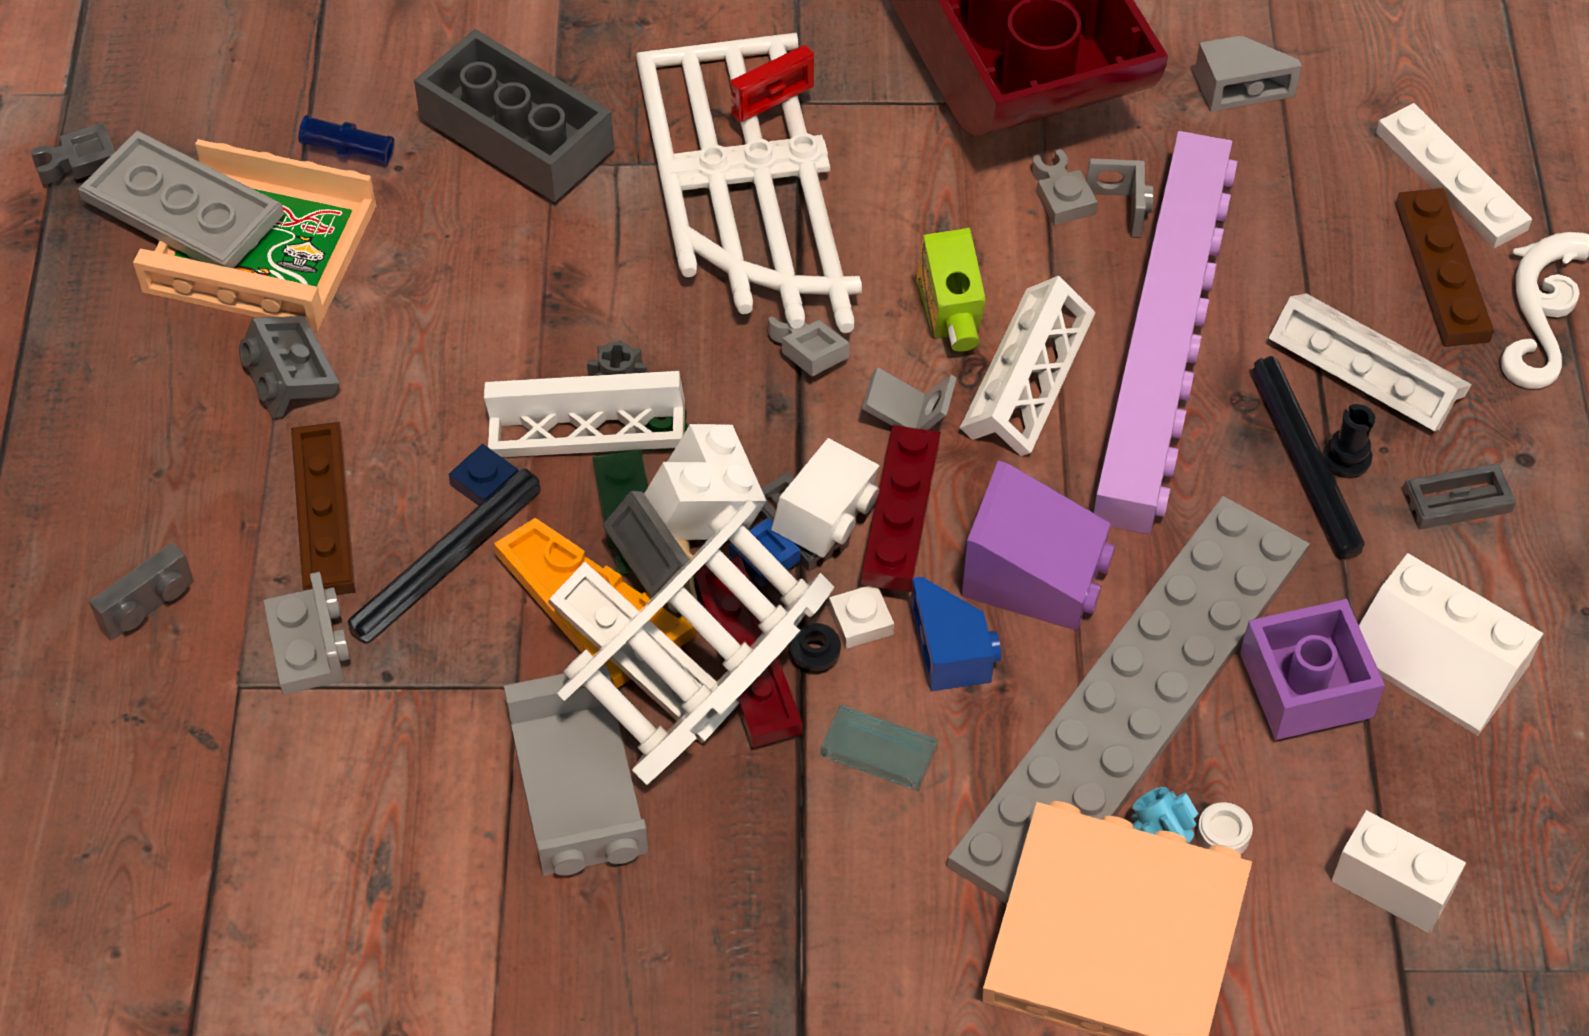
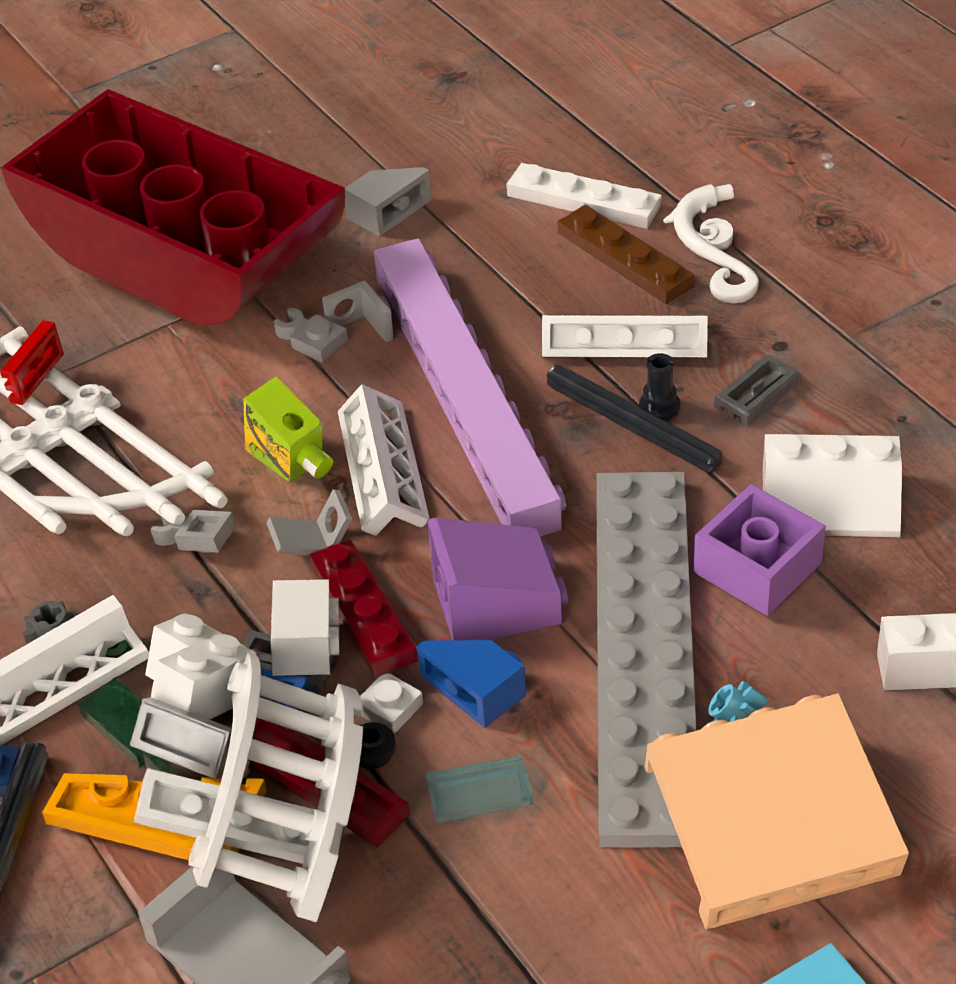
camera: 30 degrees left, 10 degrees down
(1224, 826) = (783, 691): white tile -> none

